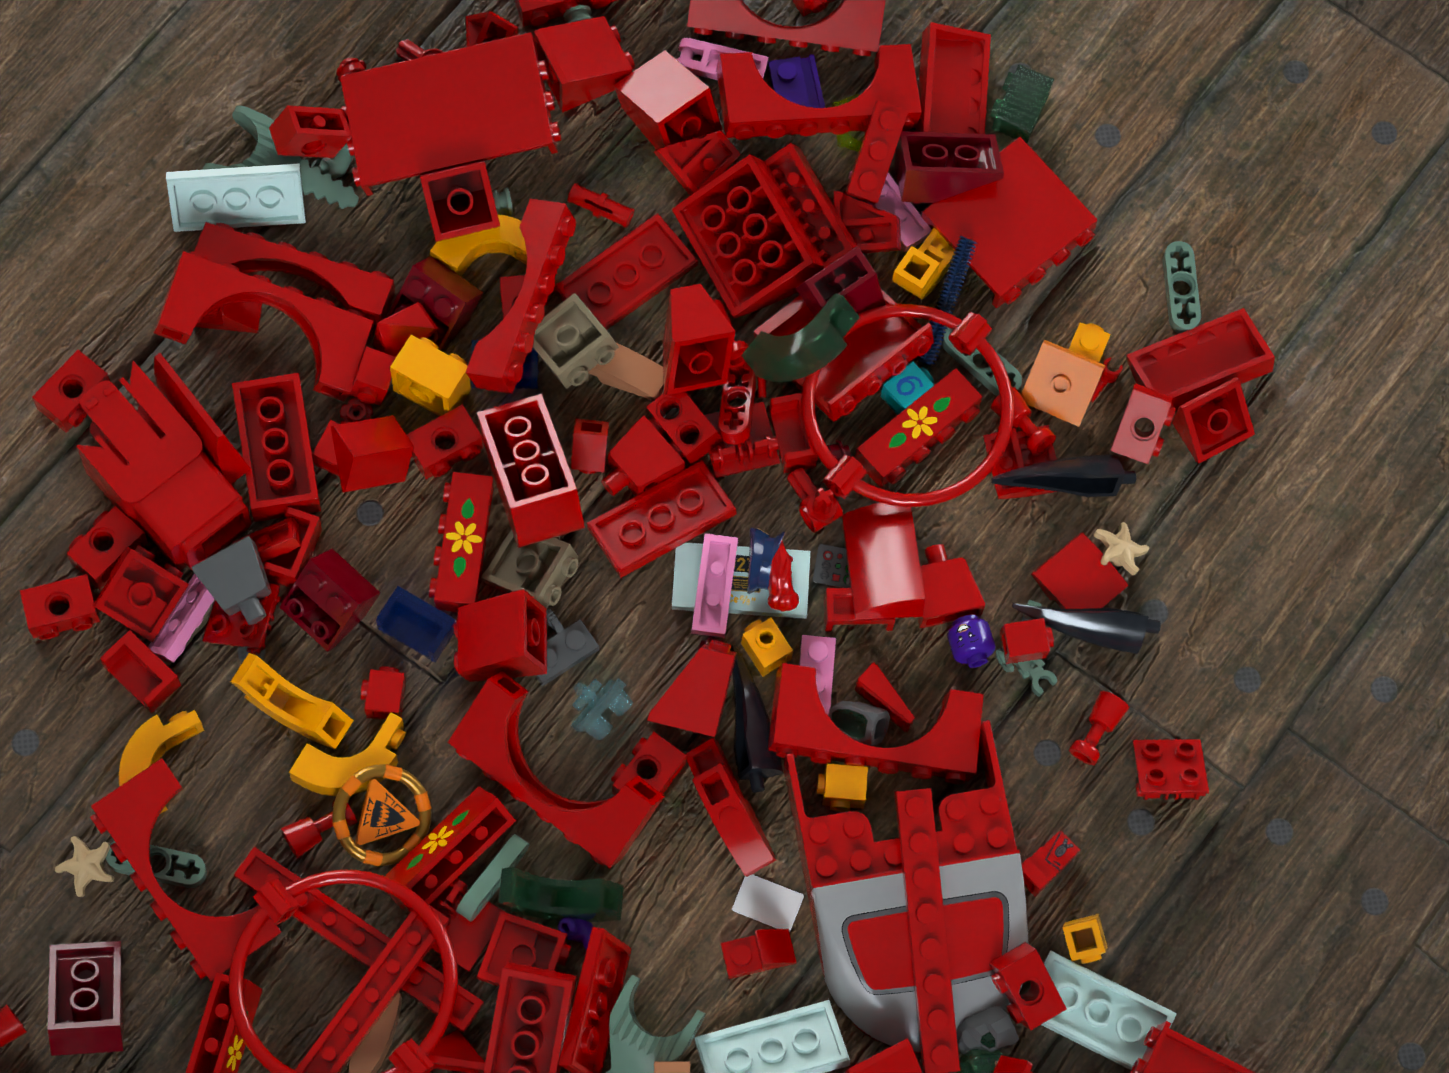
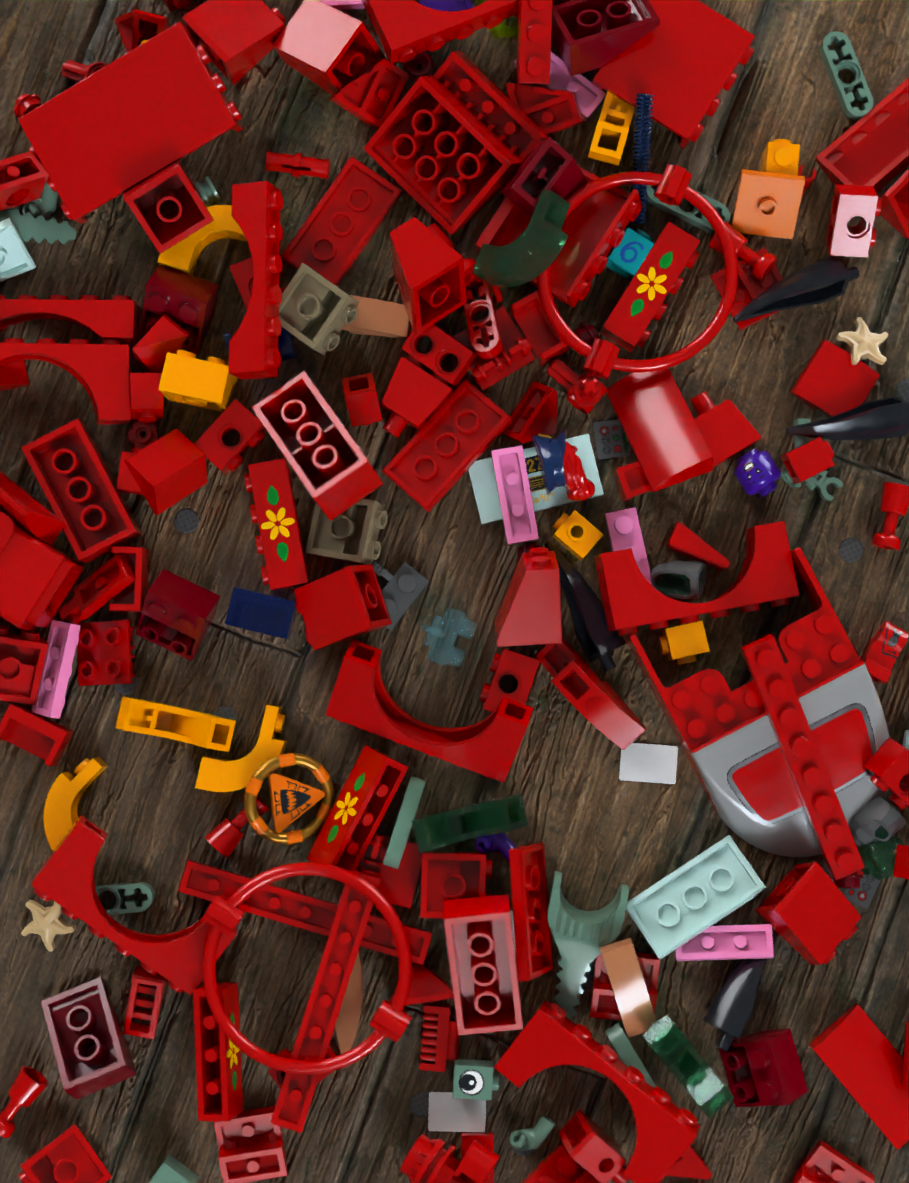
camera: 10 degrees left, 15 degrees up
(146, 976) = (148, 984): none -> red slope
(236, 579) = (88, 632): dark grey torso -> none
(383, 692) = (254, 685): red brick -> none
(758, 143) = (421, 59): none -> dark red plate
(758, 953) = (655, 812): red slope -> none
(764, 512) = (534, 414): none -> red slope

